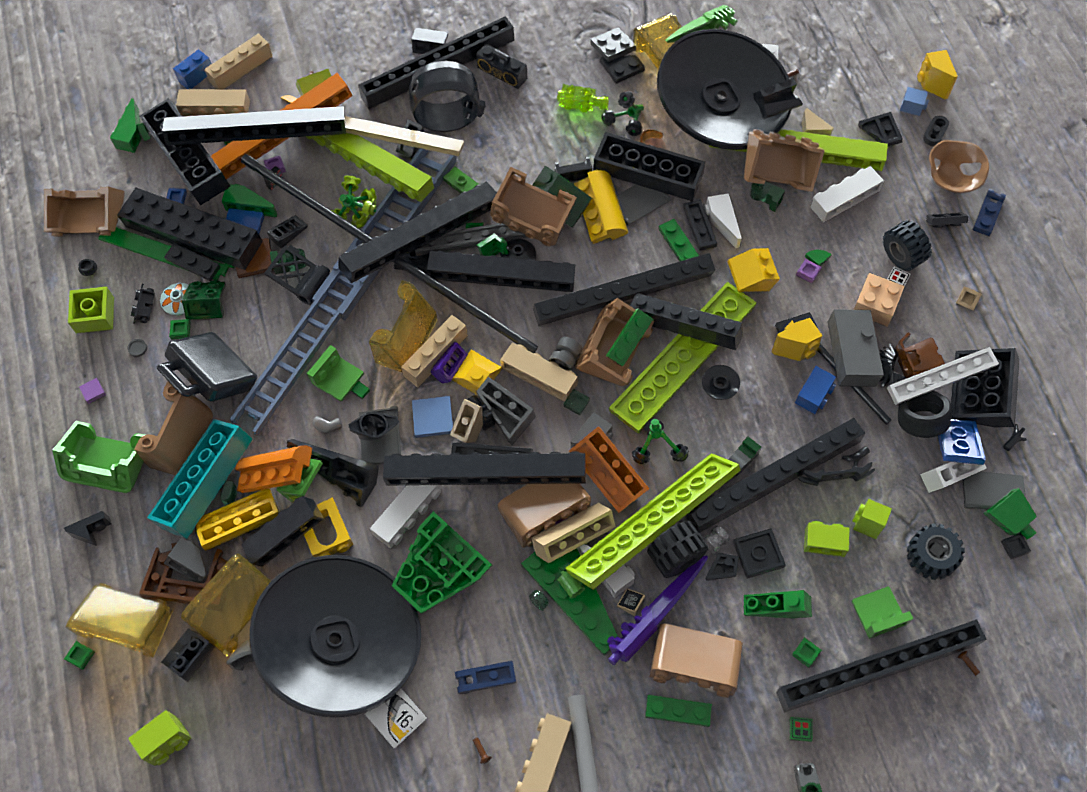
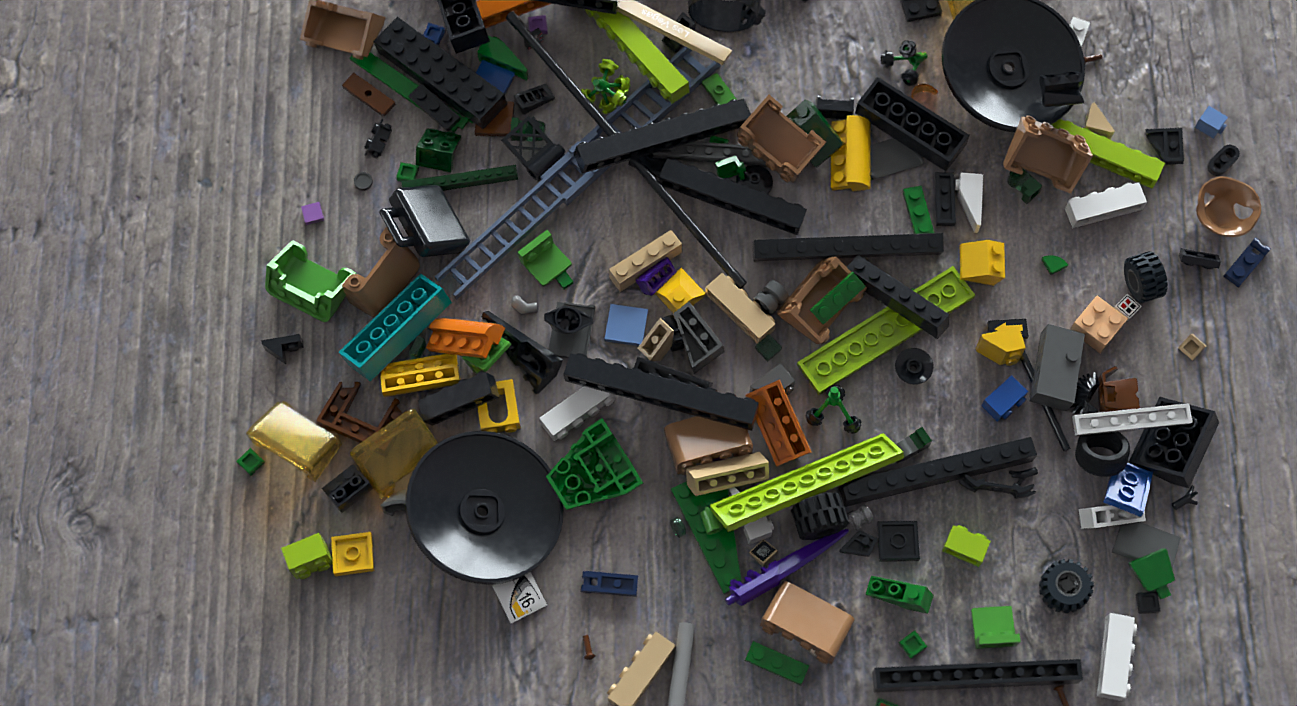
camera: 15 degrees right, 5 degrees up
(87, 267) = (333, 86): black plate -> none
(91, 309) = (328, 132): lime brick -> none
(124, 266) = (362, 89): none -> reddish brown tile
(170, 303) = (405, 146): light aqua dish -> none
(187, 560) = (365, 401): dark grey slope -> none
(209, 722) = (352, 554): none -> yellow plate
(243, 318) = (467, 179): none -> dark green piece
(409, 332) = (625, 236): clear yellow windscreen -> none
(581, 98) = (865, 30): clear neon green brick -> none
(808, 271) = (1039, 275): medium lavender tile -> none
(871, 518) = (1014, 537): lime brick -> none
(937, 74) = (1245, 99): yellow slope -> none
(1007, 608) = (1115, 657): none -> white brick

